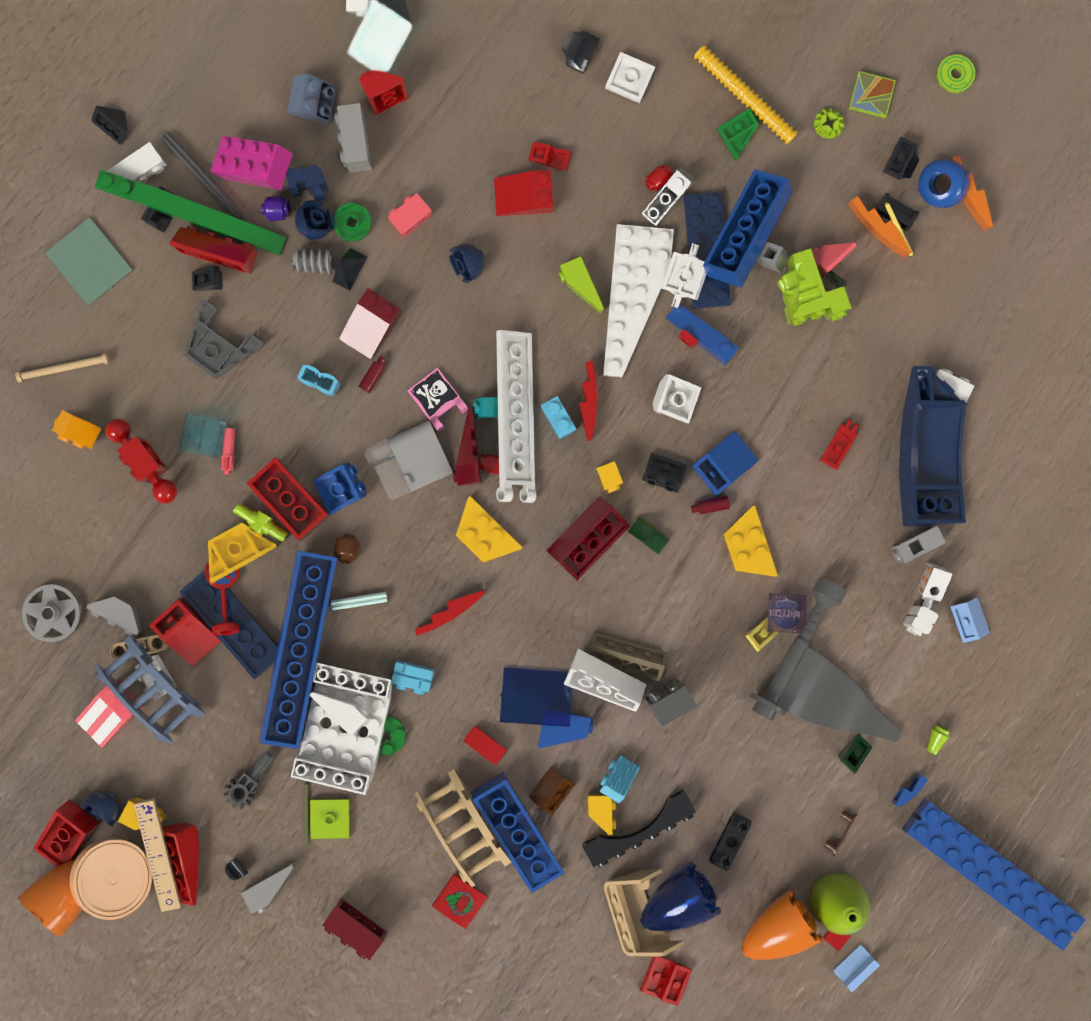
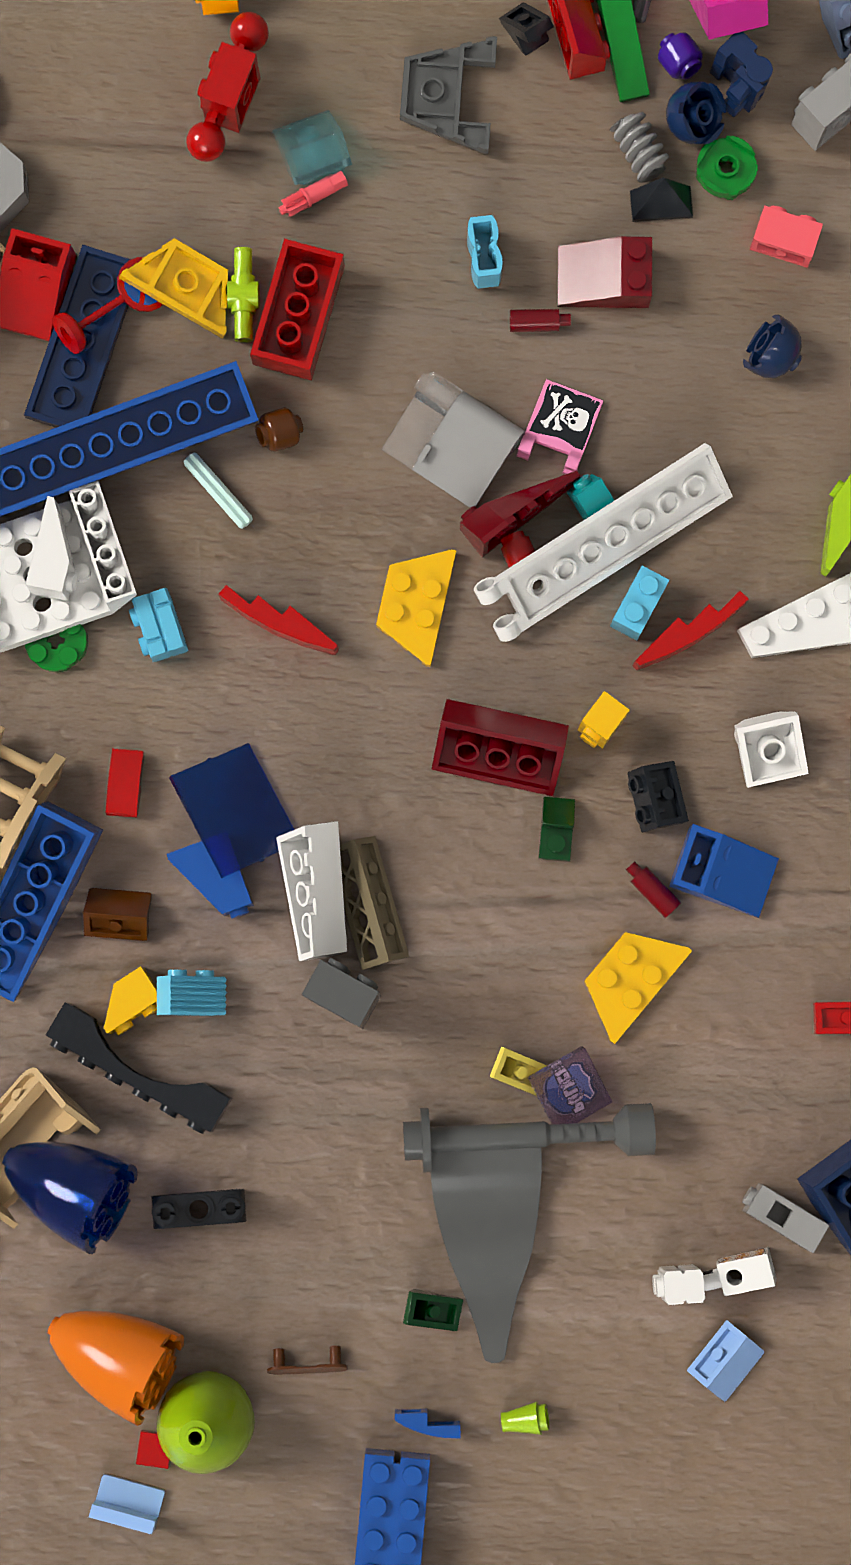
camera: 65 degrees right, 5 degrees down
(340, 487) = (357, 370): blue plate -> none

